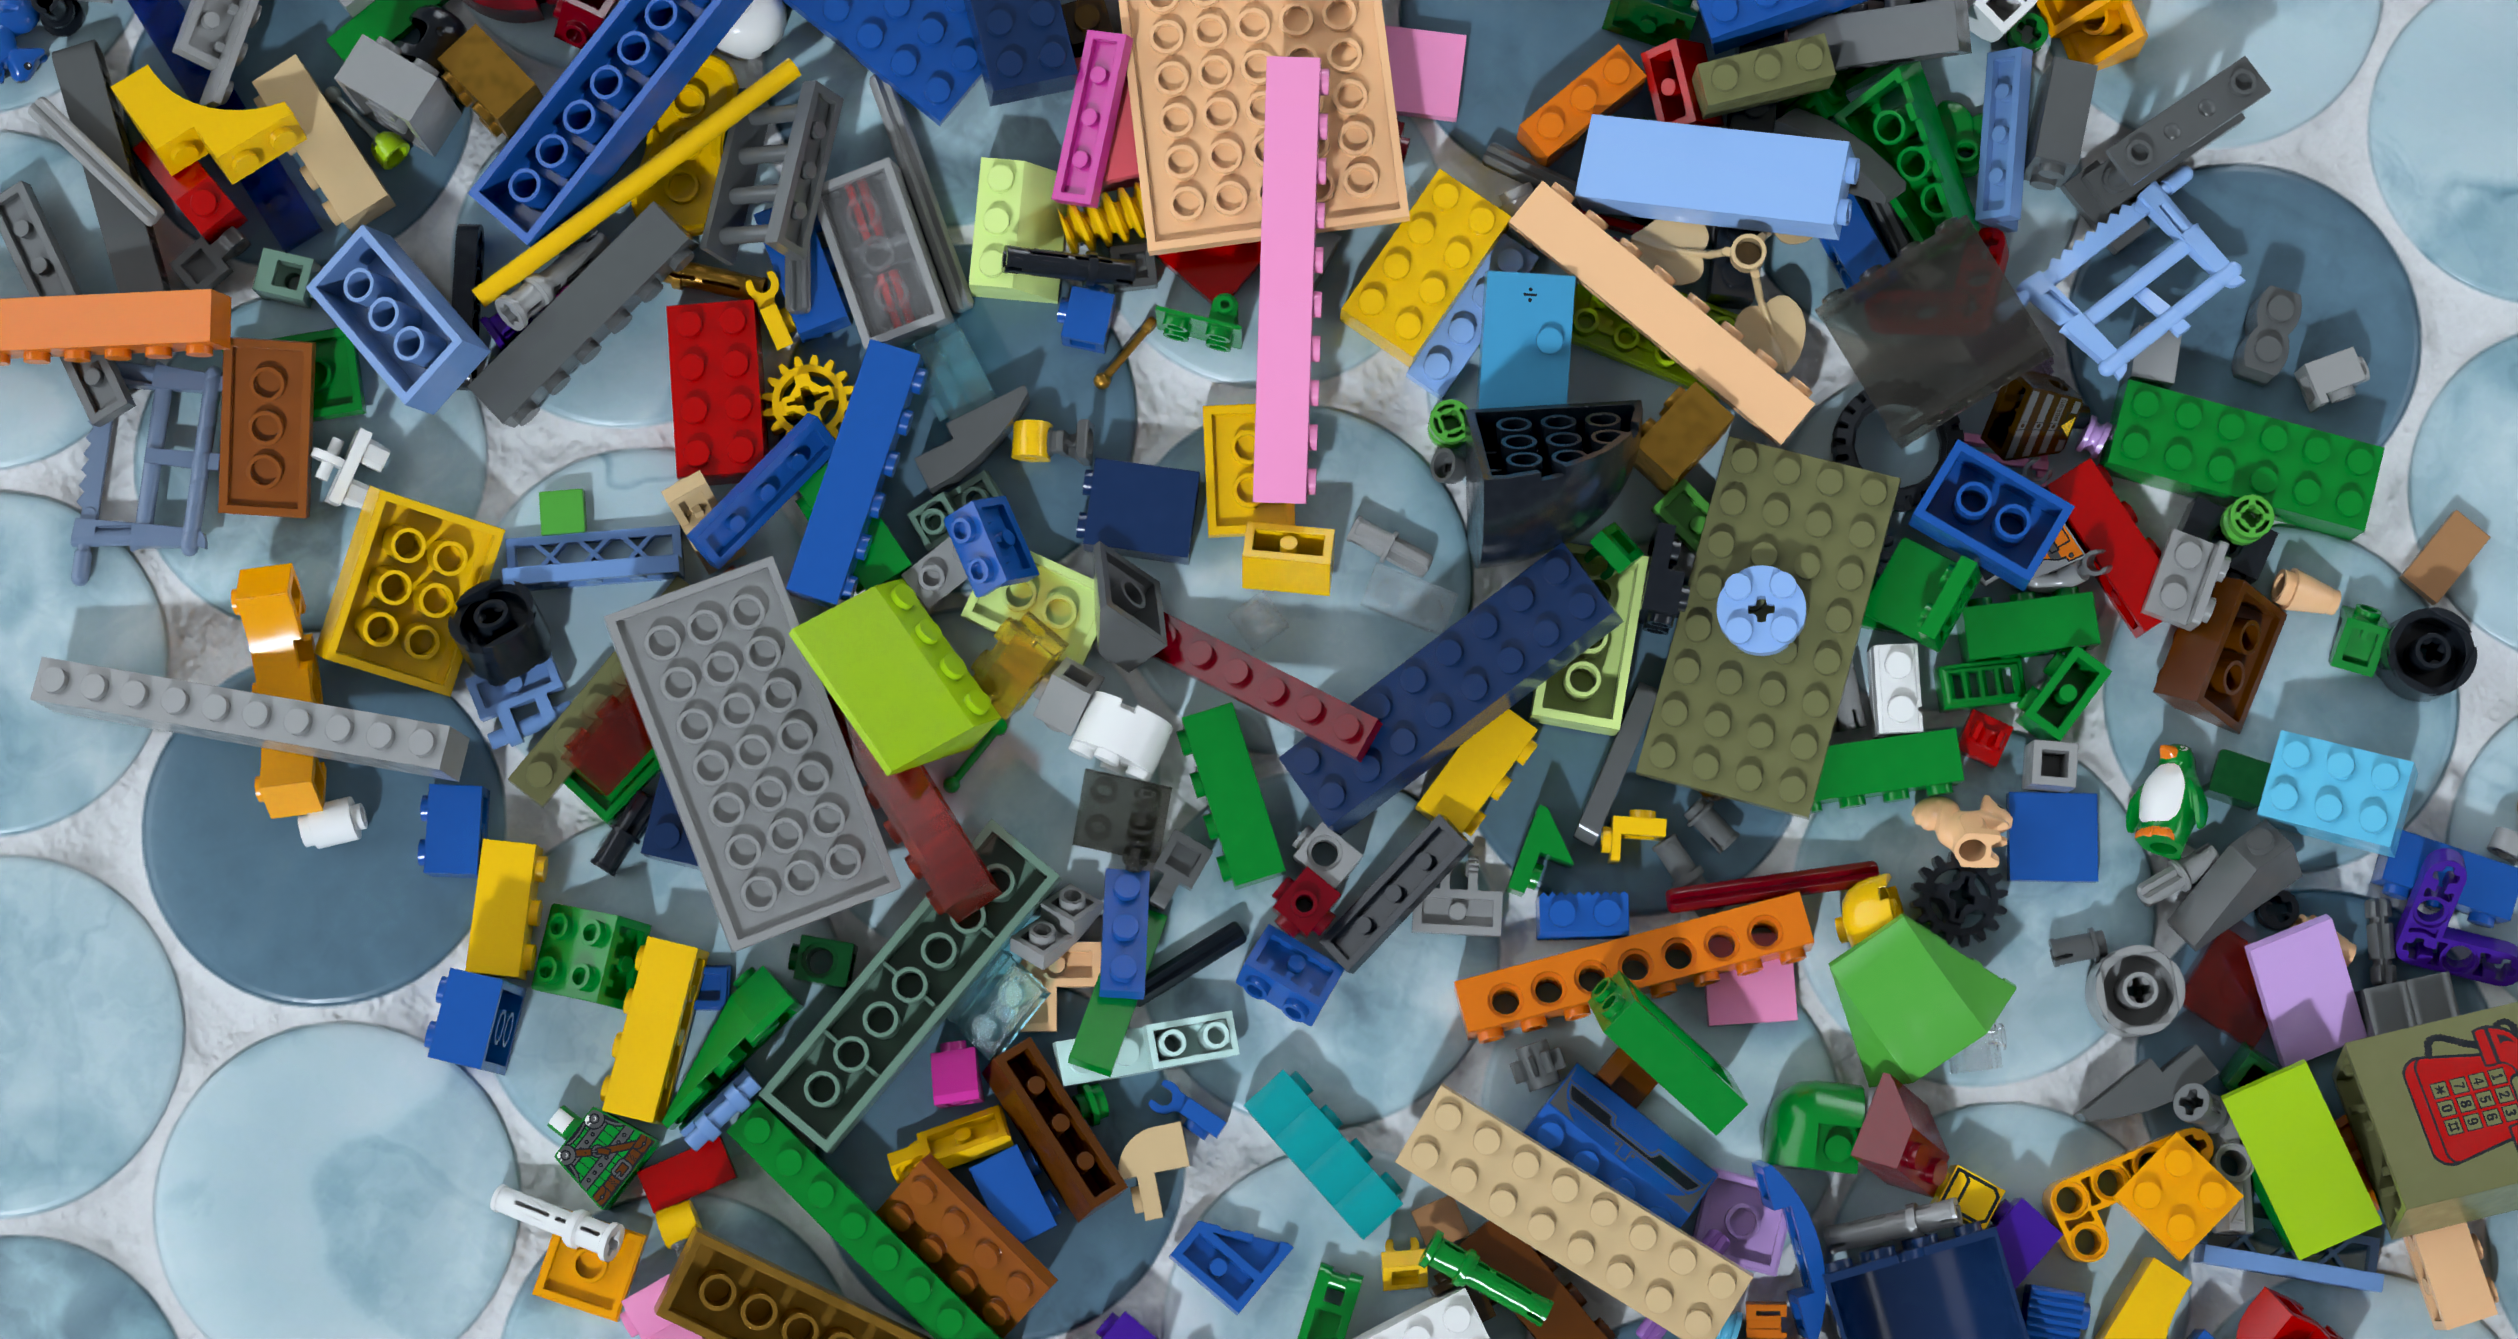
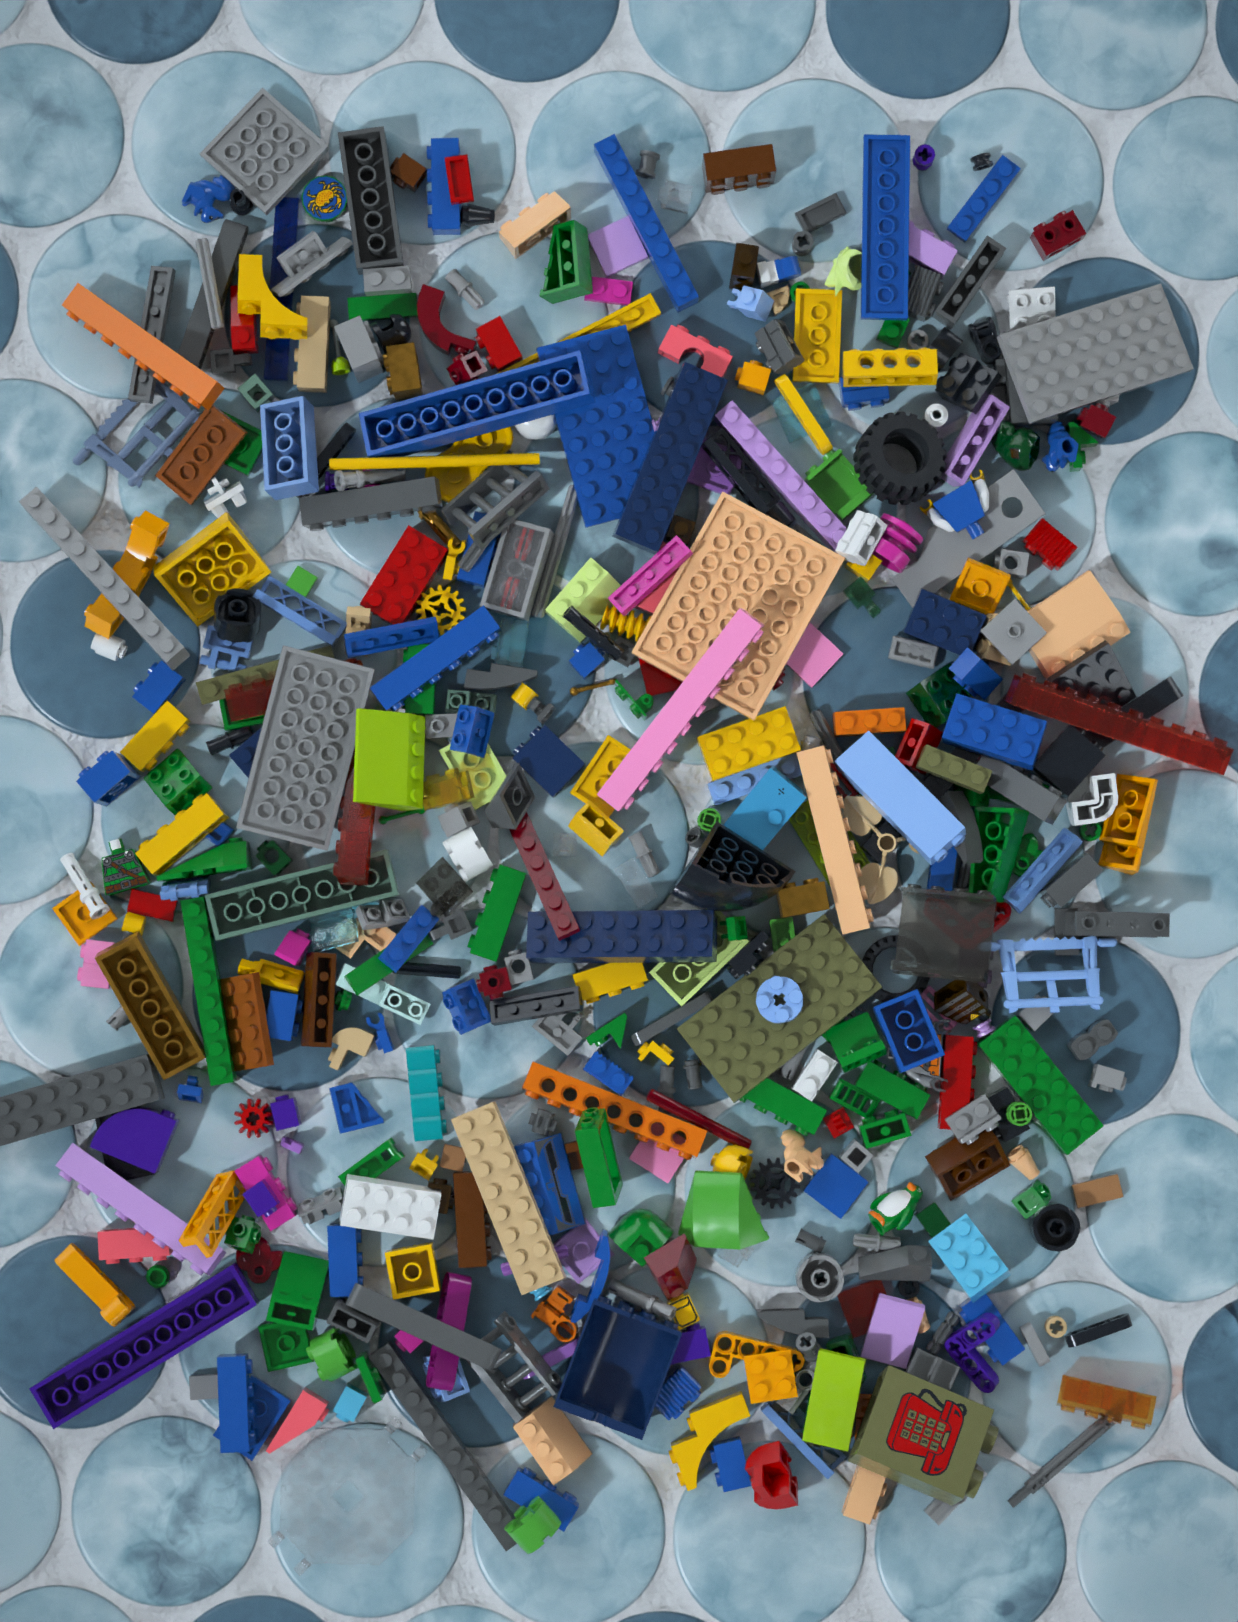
camera: 35 degrees right, 5 degrees up
(1468, 1270) = (447, 1185): green pin -> none

